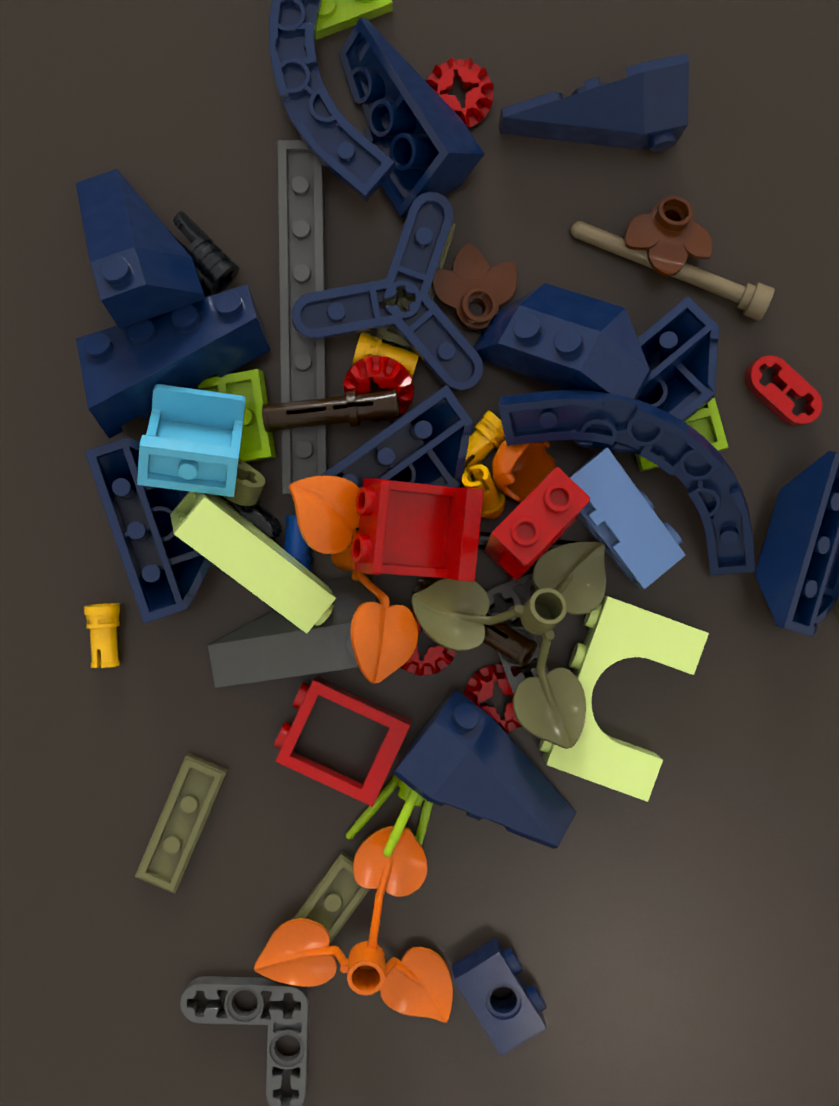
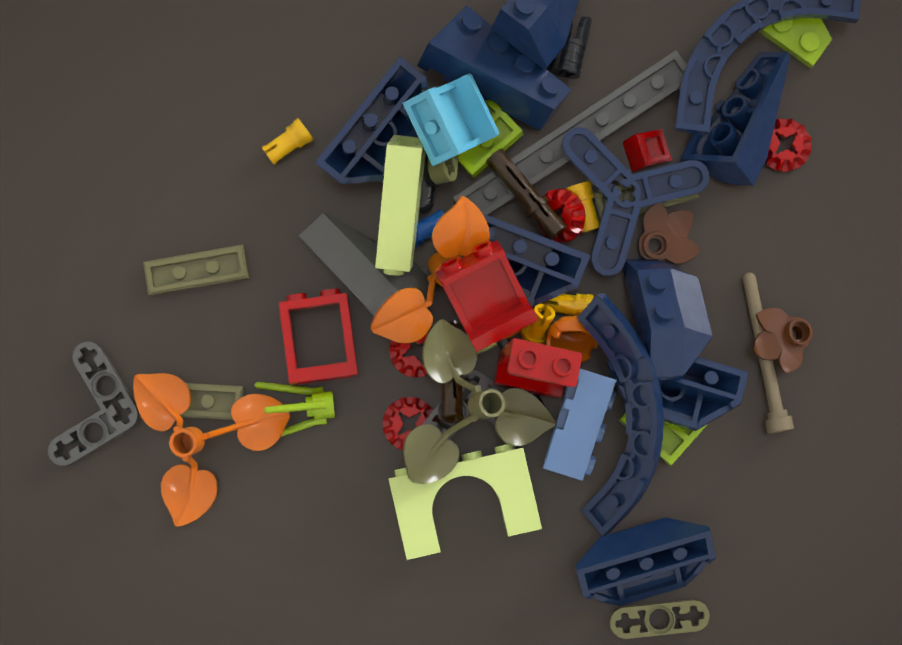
camera: 65 degrees right, 5 degrees down
(366, 248) = (646, 150): none -> red slope
(476, 767) = (357, 435): dark blue wedge -> none
(507, 1020) = (201, 563): dark blue brick -> none
(628, 113) = (847, 265): dark blue wedge -> none
(790, 383) = (741, 480): red beam -> none

